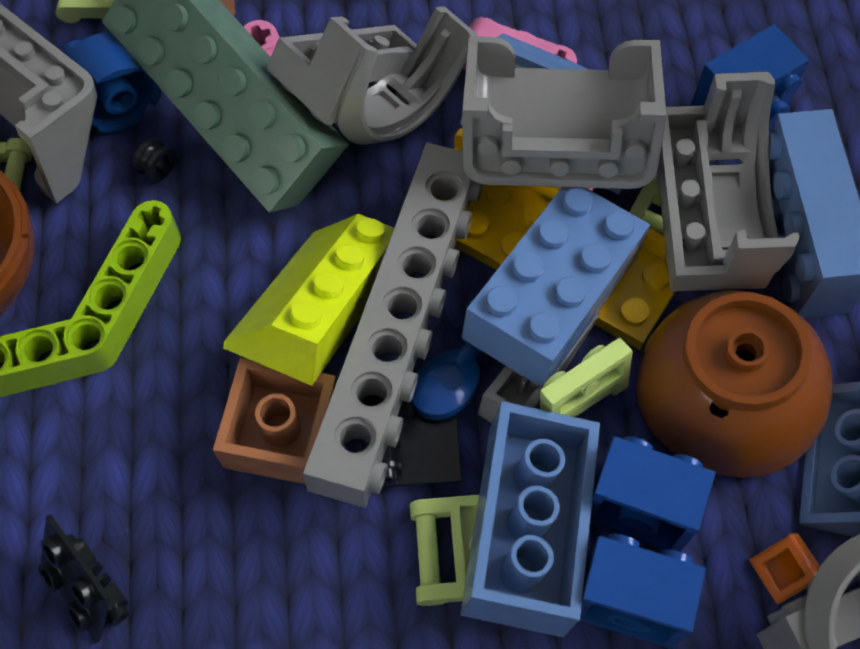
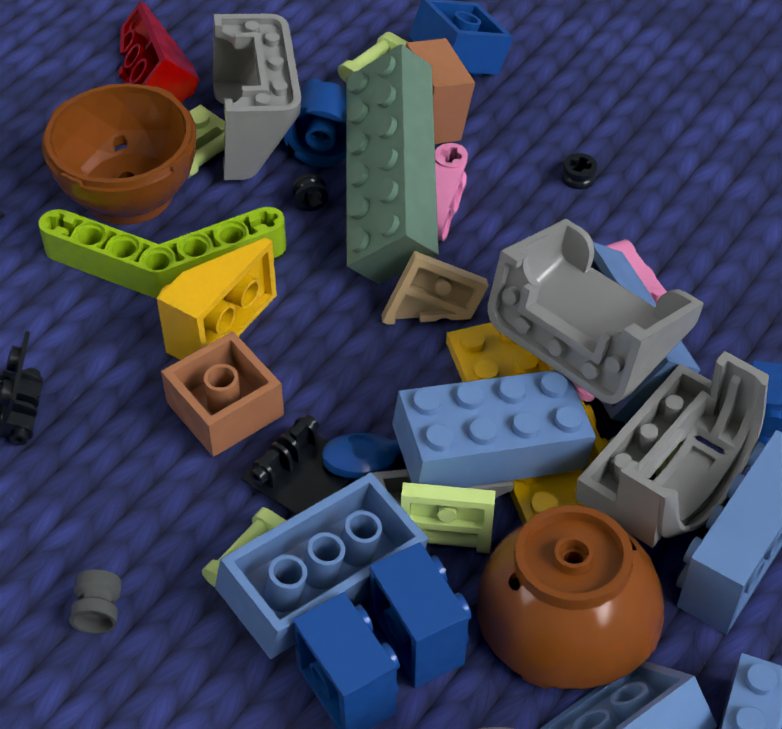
camera: 40 degrees right, 15 degrees down
(184, 342) = (217, 298): none -> yellow slope
(314, 300) = (325, 337): neon yellow slope -> none
(330, 467) = (347, 382): light grey brick -> none
(335, 68) = (458, 186): light grey piece -> none
(367, 178) = (434, 292): none -> tan wing

